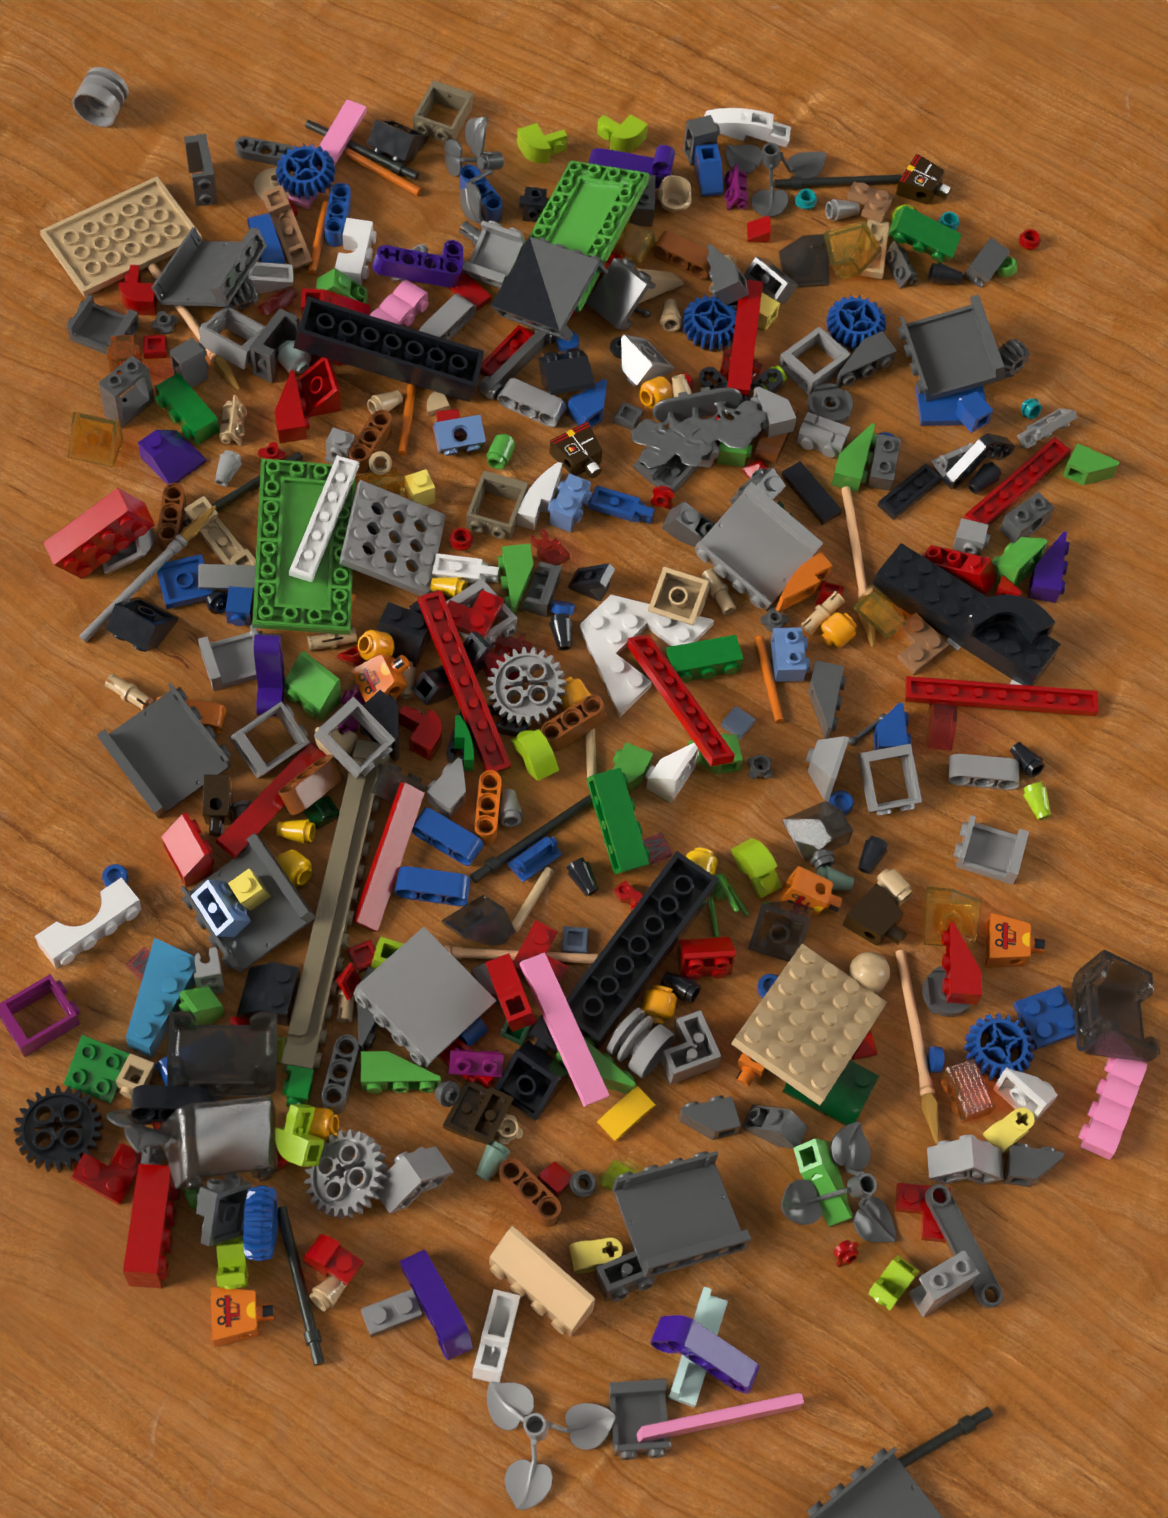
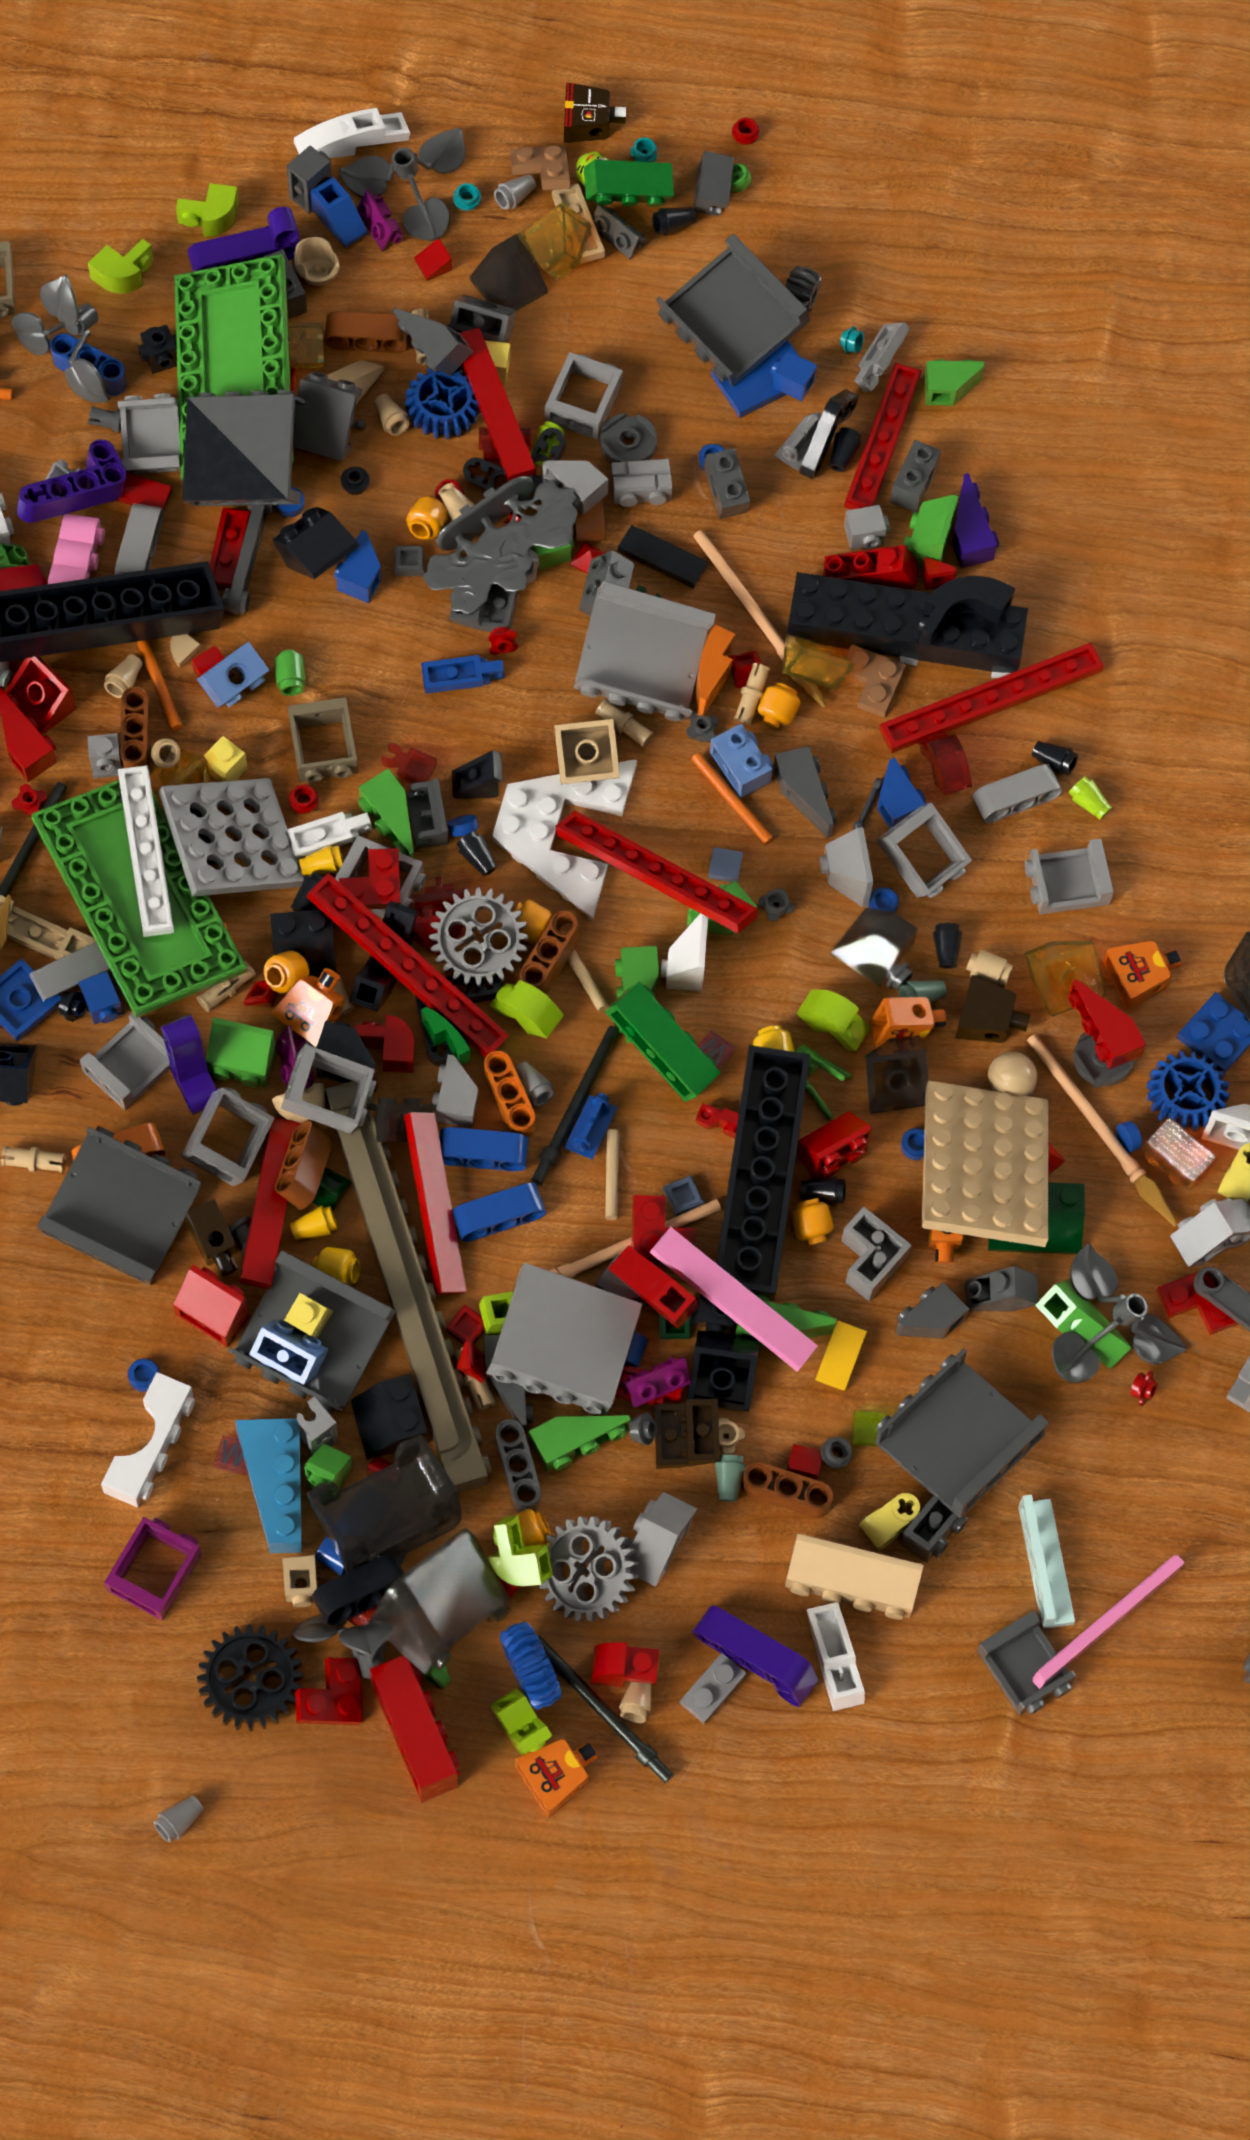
camera: 25 degrees left, 5 degrees up
(96, 1069) = (252, 1593): green hinge -> none
(223, 1208) = (483, 1669): dark grey plate -> none
(300, 1085) = (480, 1502): green brick -> none
(481, 922) = (574, 1225): clear smoke slope -> none
(513, 1403) = (889, 1715): light grey plant -> none
(532, 402) = (292, 596): light grey beam -> none
(539, 497) = (365, 707): white slope -> none
(569, 504) = (403, 704): medium blue brick -> none
(578, 451) = (378, 631): dark brown torso -> none
(582, 876) = (654, 1121): black cone -> none
(636, 1039) = (817, 1272): light grey wheel -> none
(642, 360) = (391, 487): light grey slope -> none
(687, 524) = (549, 661): dark grey slope -> none
(706, 658) = (653, 808): green brick -> none
(706, 1350) = (1059, 1560): beam -> none
(797, 182) = (445, 180): pearl dark grey bar -> none
(847, 313) = (588, 329): blue gear -> none
(852, 460) = (691, 502): bright green slope -> none
(870, 356) = (644, 359): dark grey slope -> none
(893, 1282) = (1208, 1394): lime brick -> none
(909, 491) = (769, 503): black tile -> none

